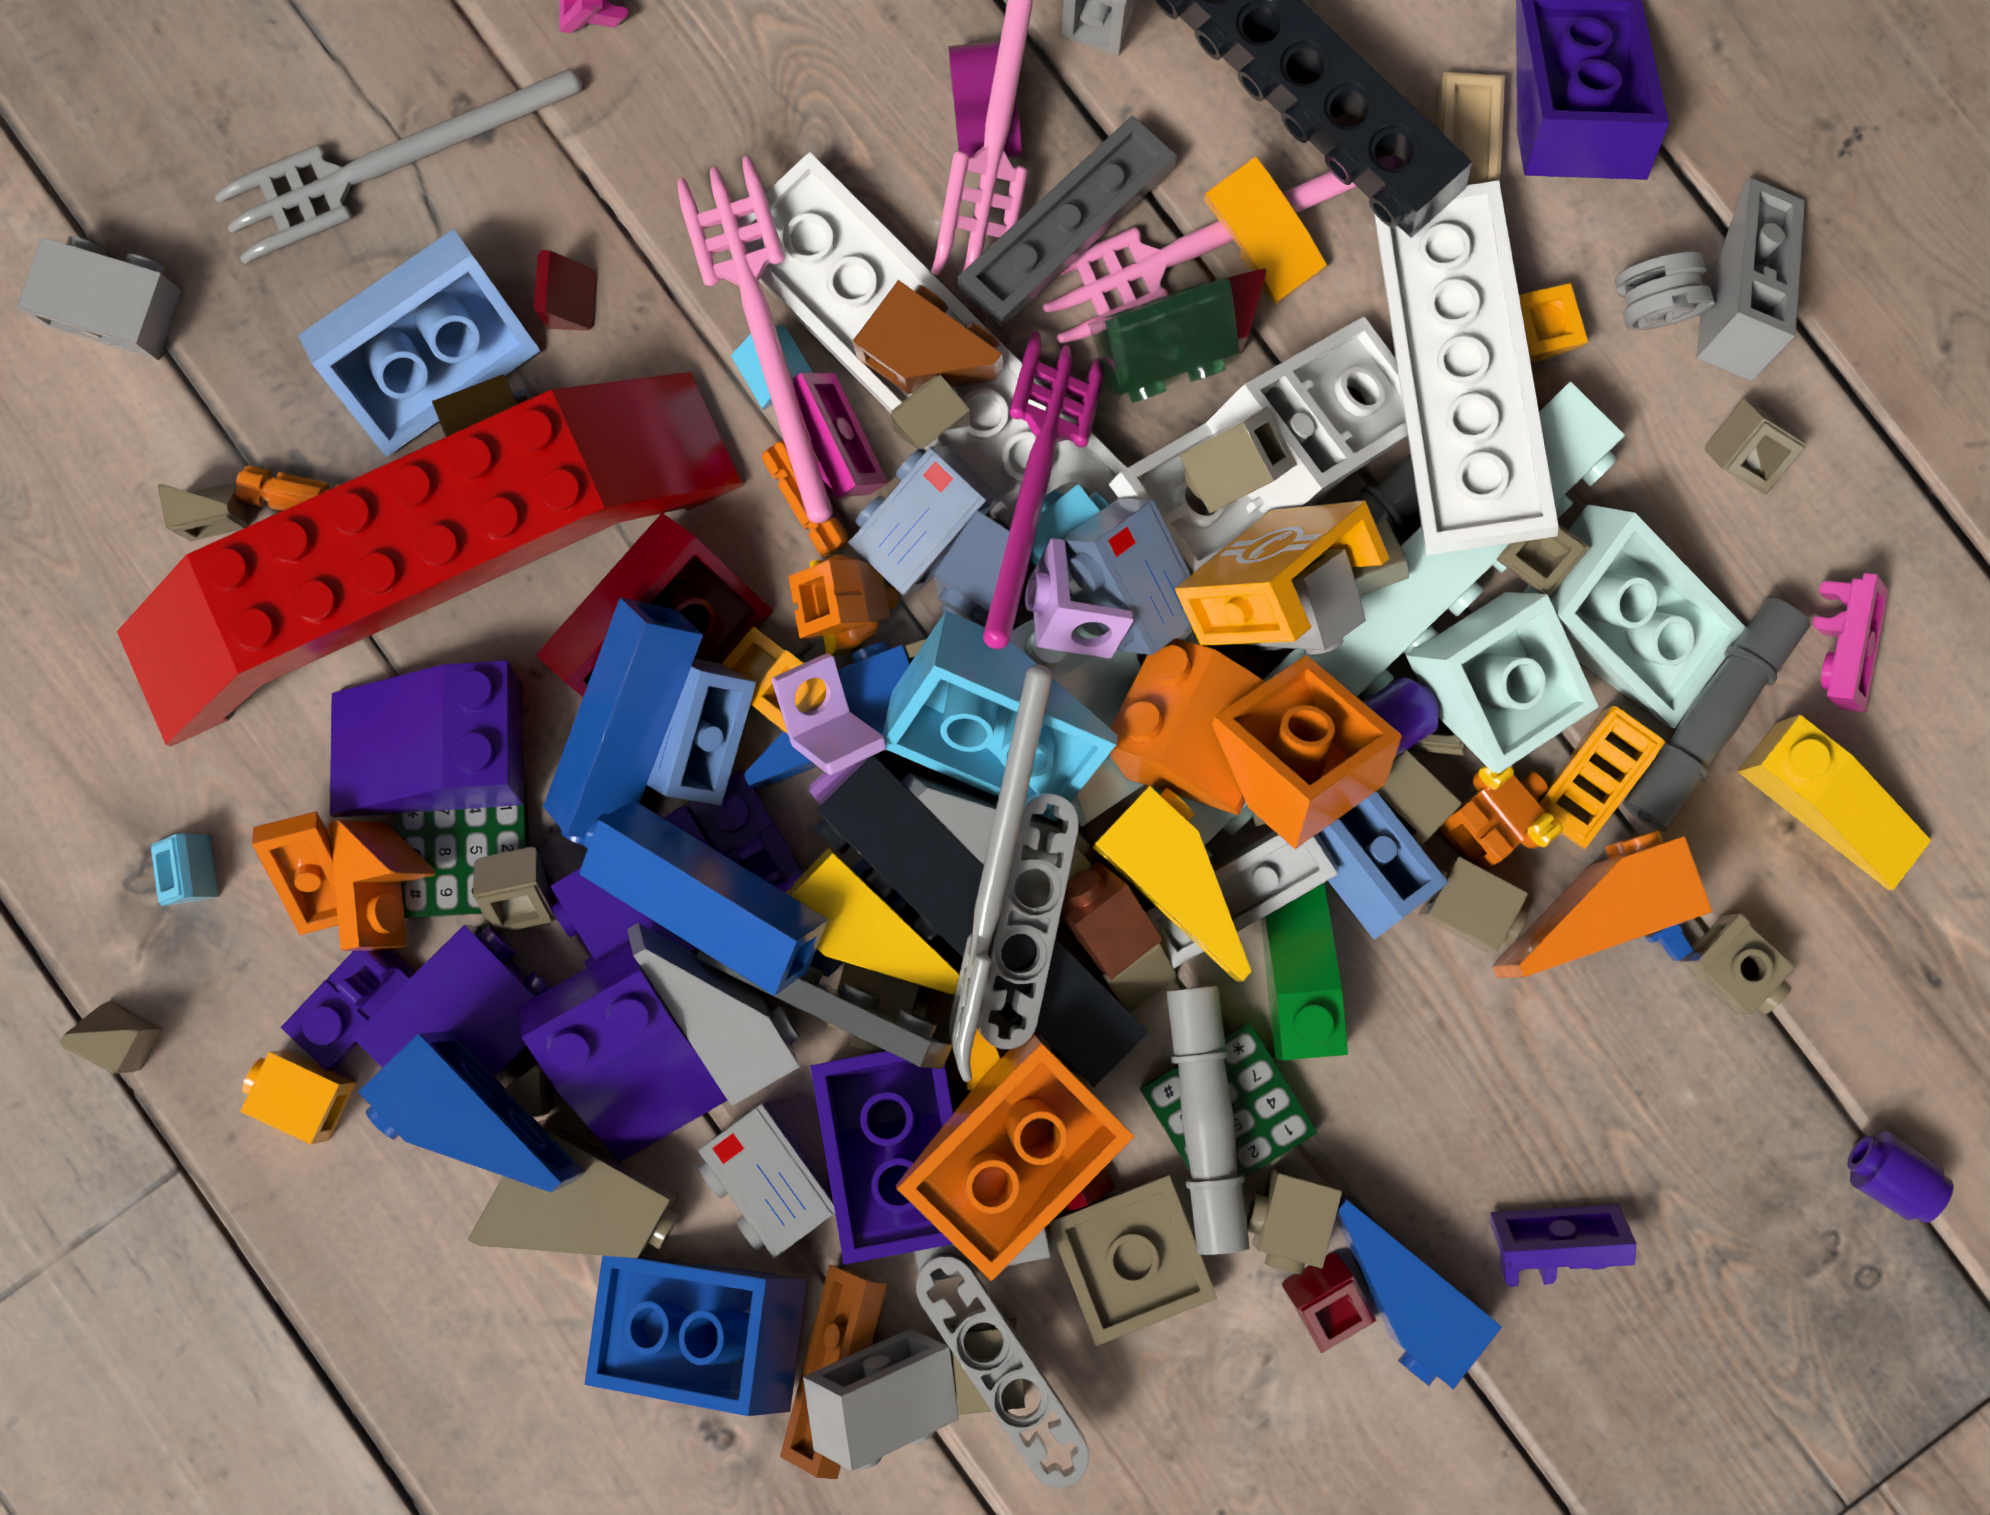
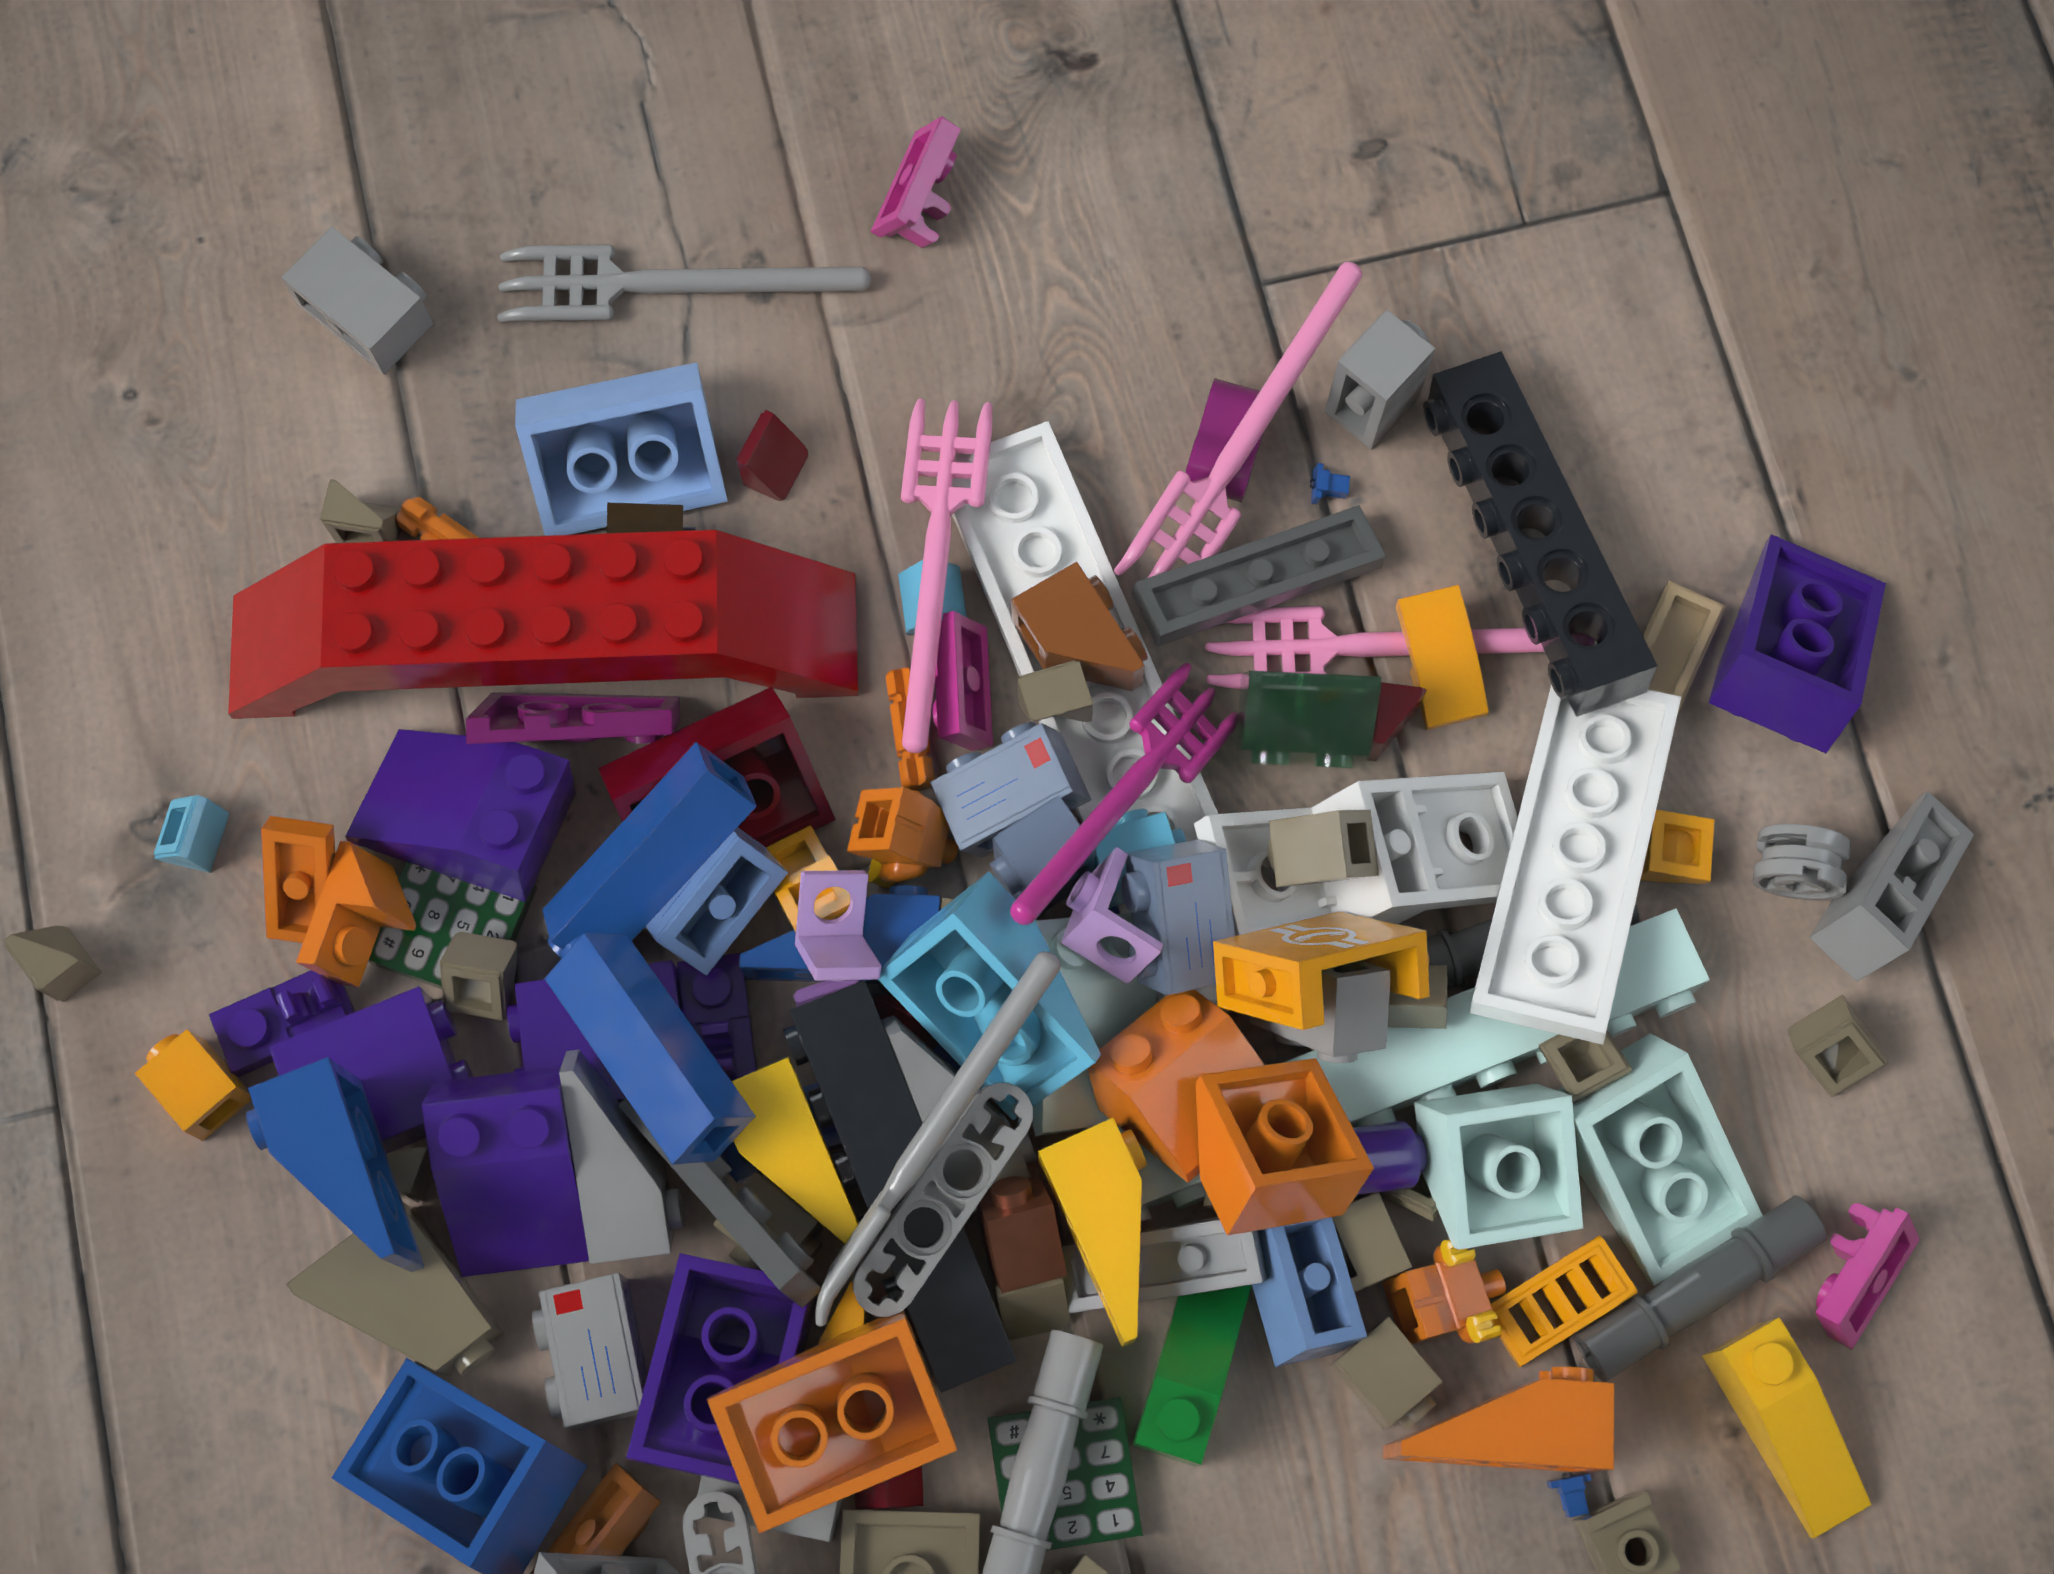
camera: 20 degrees right, 10 degrees down
(488, 617) = (571, 717): none -> magenta wing
(1093, 106) = (1328, 484): none -> blue piece

